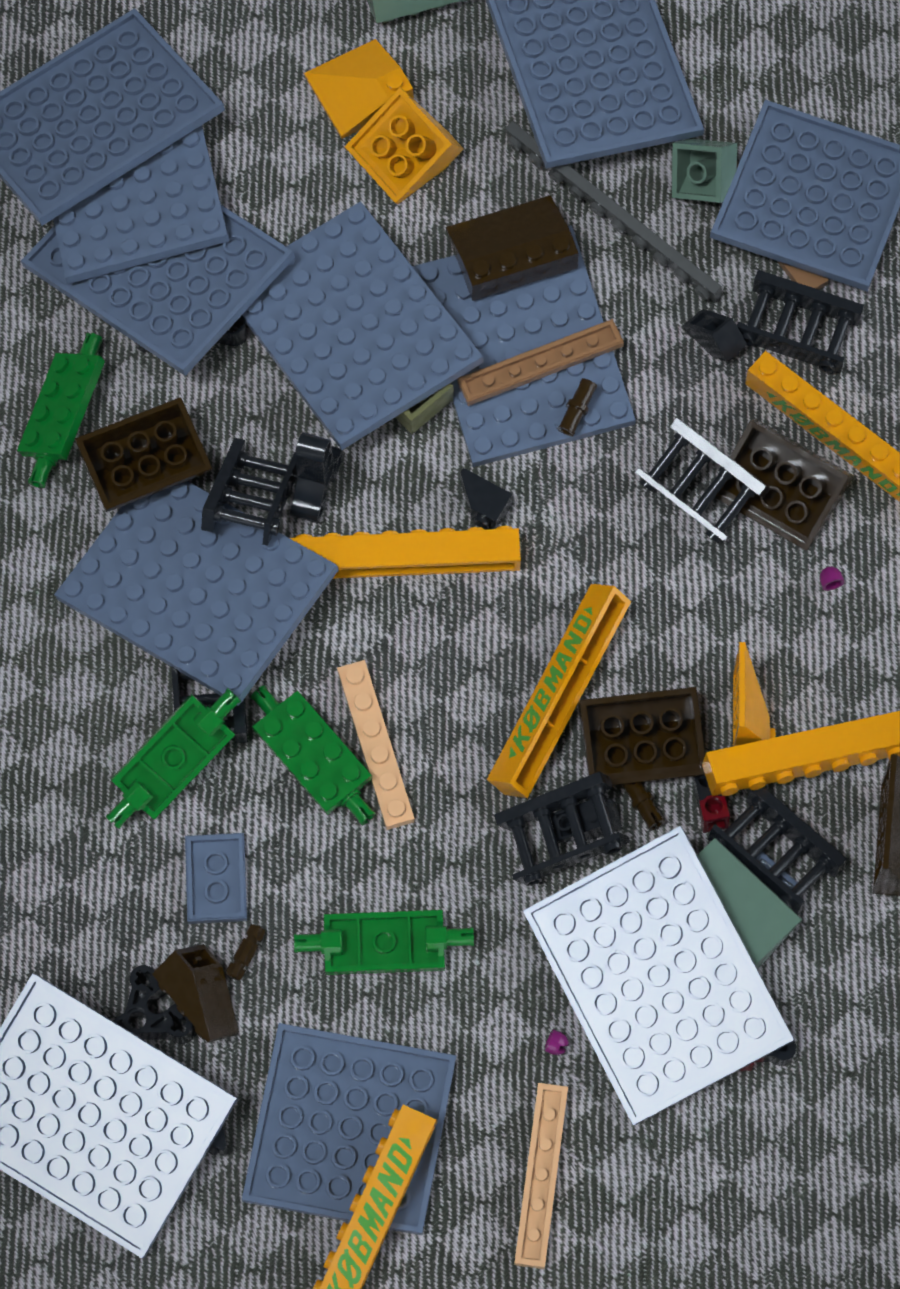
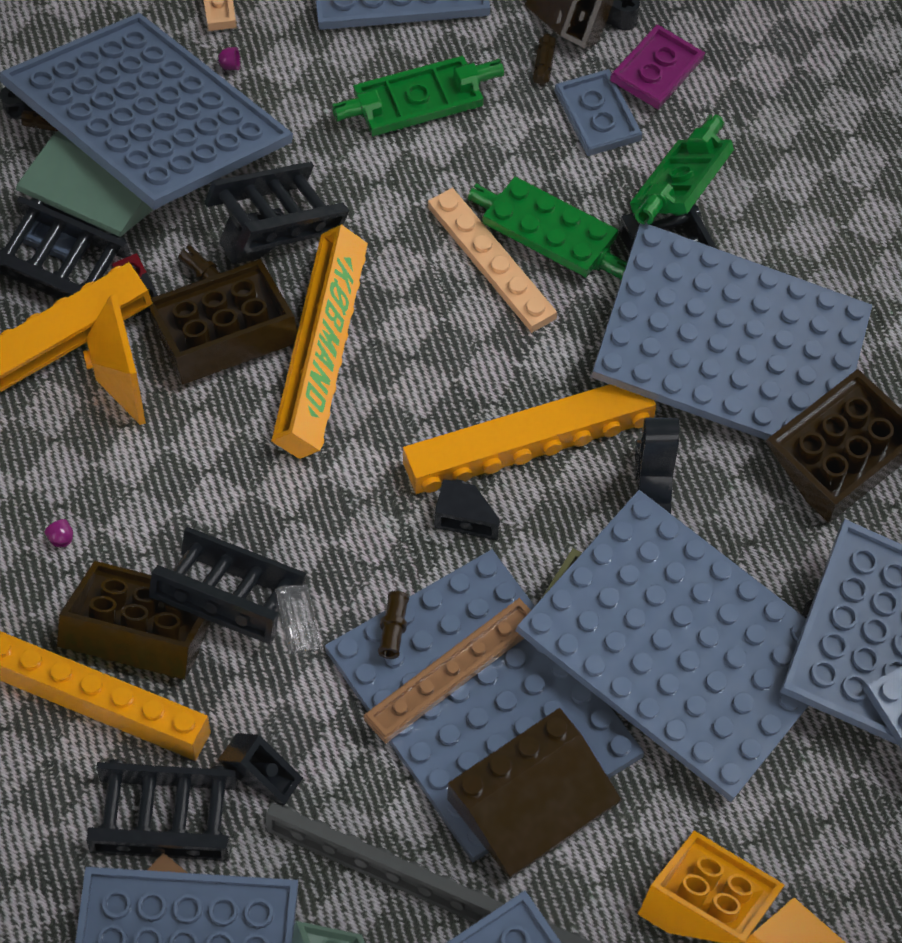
camera: 160 degrees right, 10 degrees down
(139, 909) = (657, 66): none -> magenta tile
(231, 475) = (743, 413): black fence -> none
(652, 440) = (298, 619): none -> clear tile

